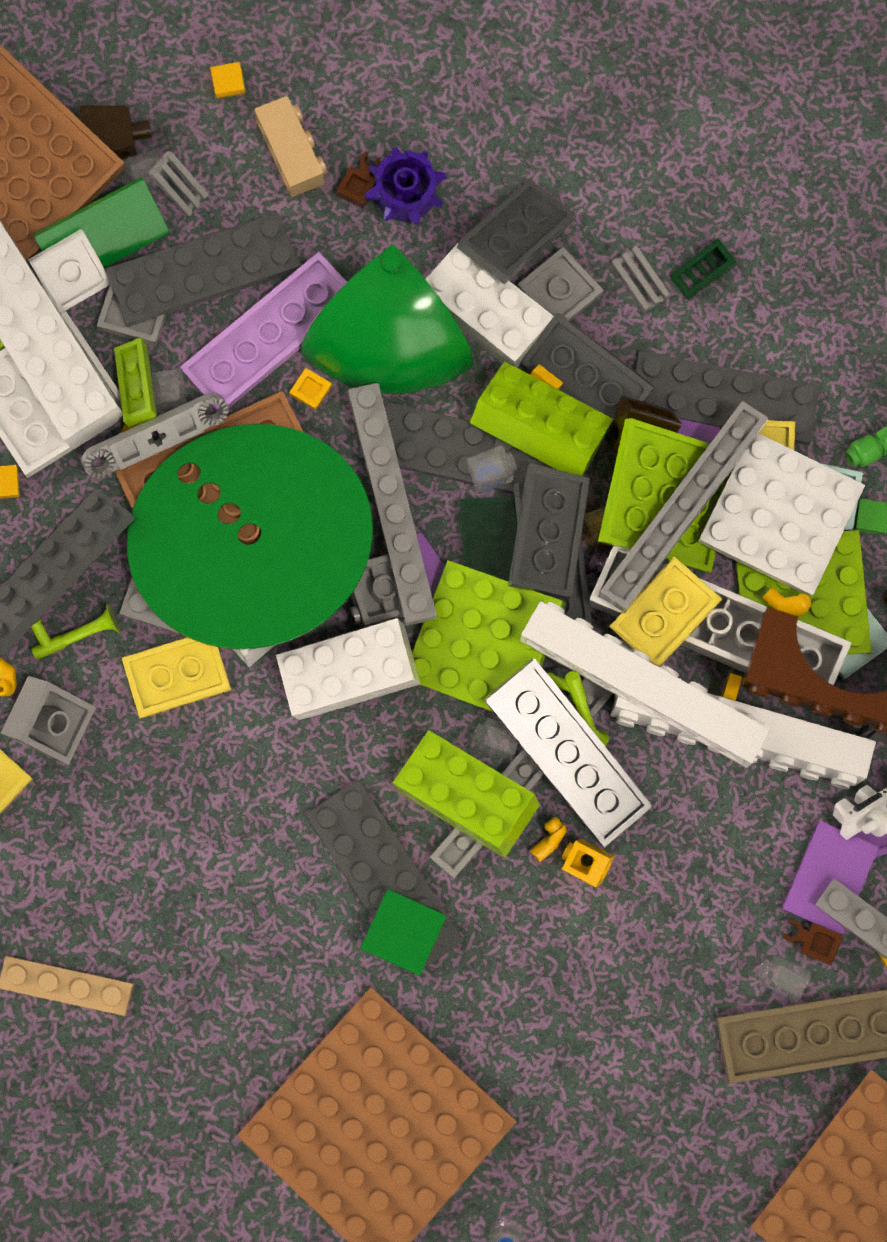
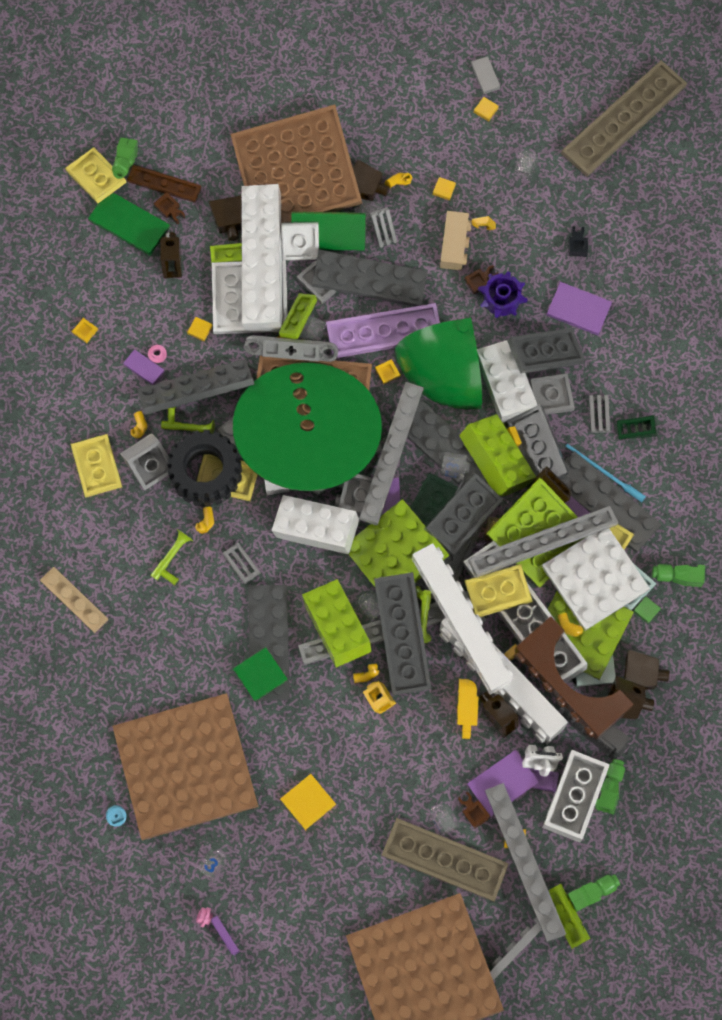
camera: 35 degrees right, 5 degrees down
(115, 648) = (199, 445): none -> black tyre
(155, 101) = (399, 179): none -> yellow arm
(164, 866) = (160, 569): none -> lime piece
(188, 758) = (208, 521): none -> yellow arm
(268, 798) = (250, 576): none -> light grey tile
(314, 95) = (484, 221): none -> yellow tile
(463, 55) = (577, 243): none -> black plate
(521, 145) = (579, 308): none -> medium lavender tile
(580, 1071) = (308, 802): none -> yellow tile
(717, 801) = (467, 706): none -> yellow piece
(741, 361) = (628, 488): none -> medium azure piece
(777, 792) = (501, 716): none -> dark brown torso

